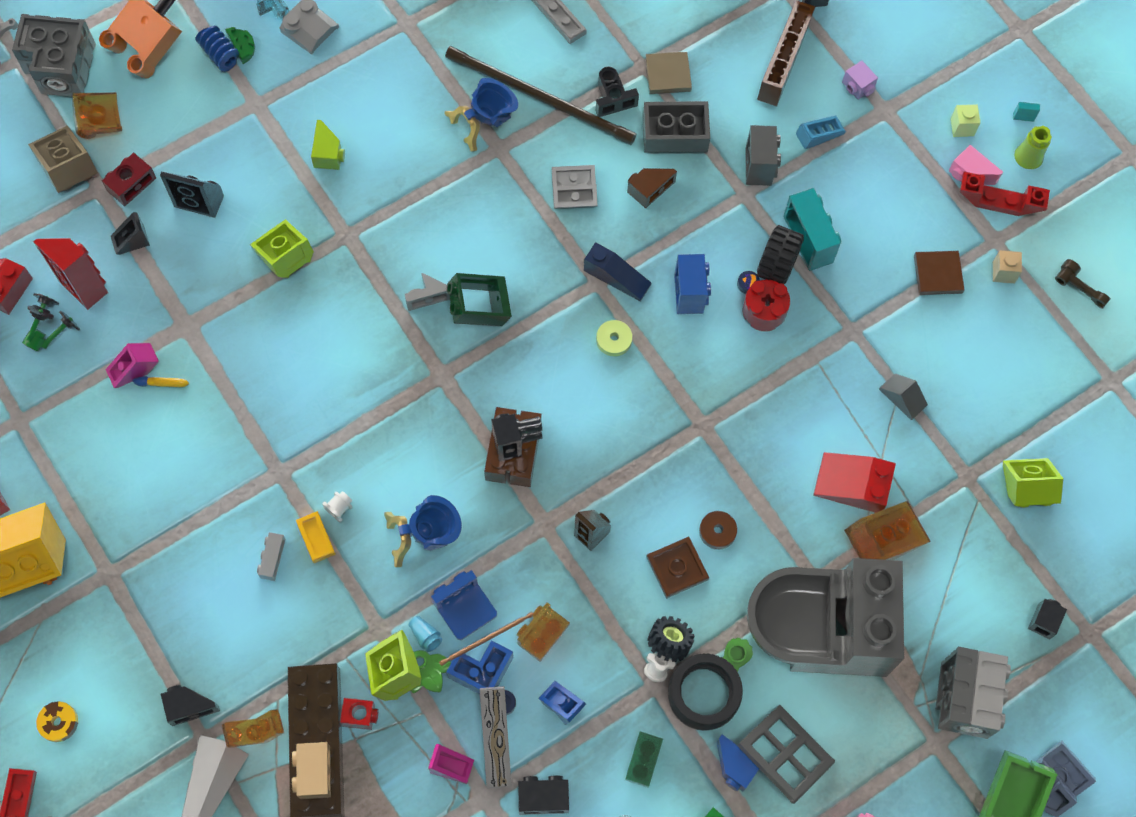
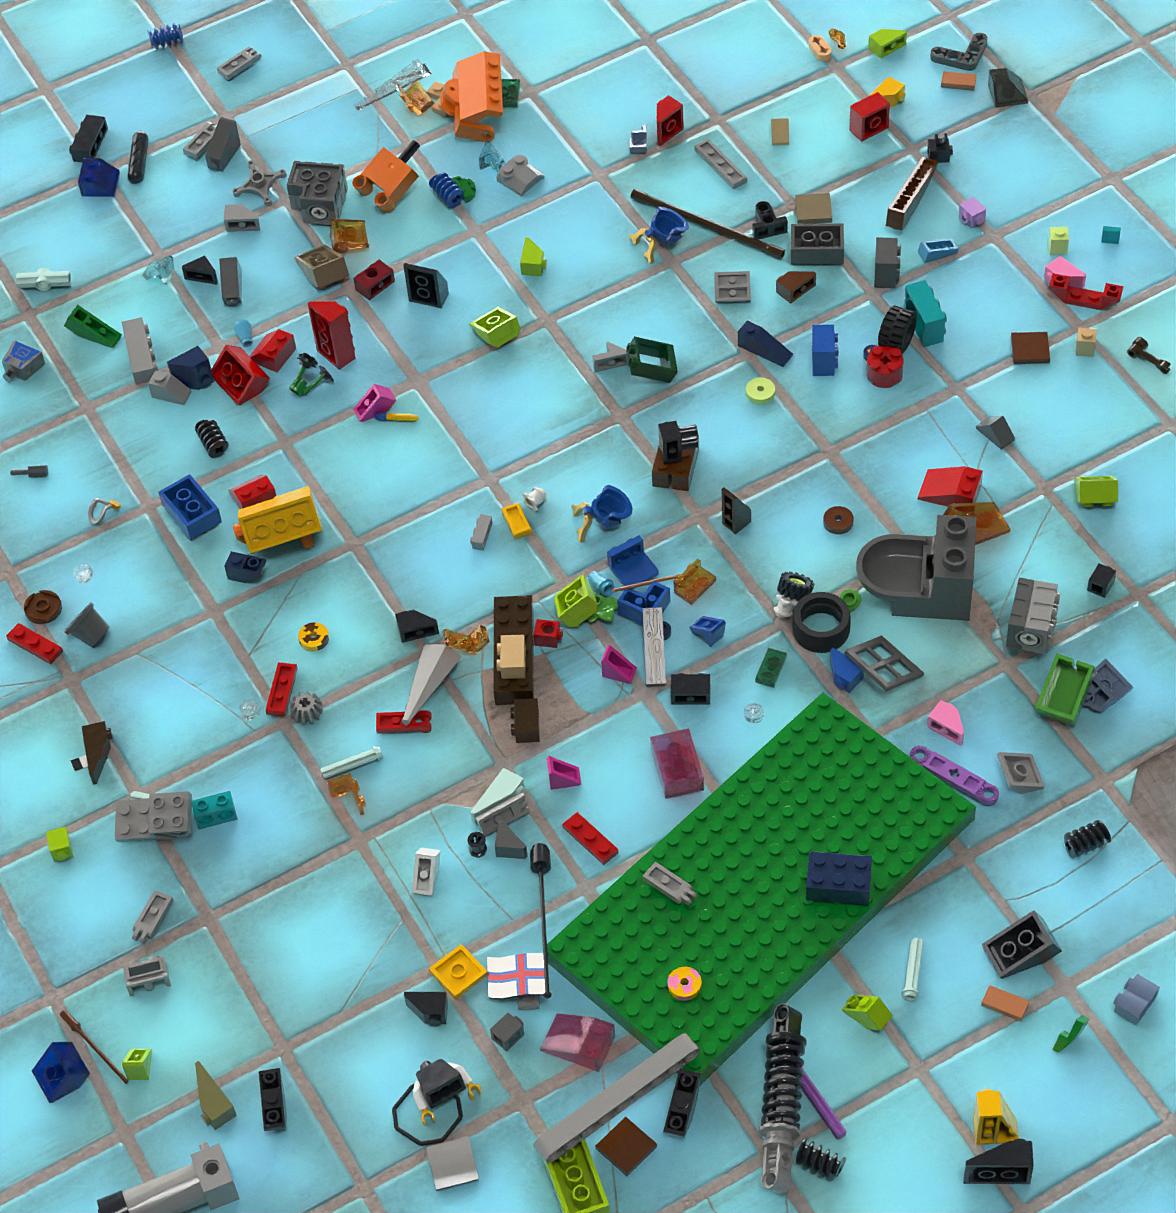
camera: 10 degrees right, 15 degrees down
(130, 235) = (374, 317): black slope -> none
(677, 567) = (804, 544): reddish brown tile -> none
(1032, 150) = (1113, 260): lime plant -> none

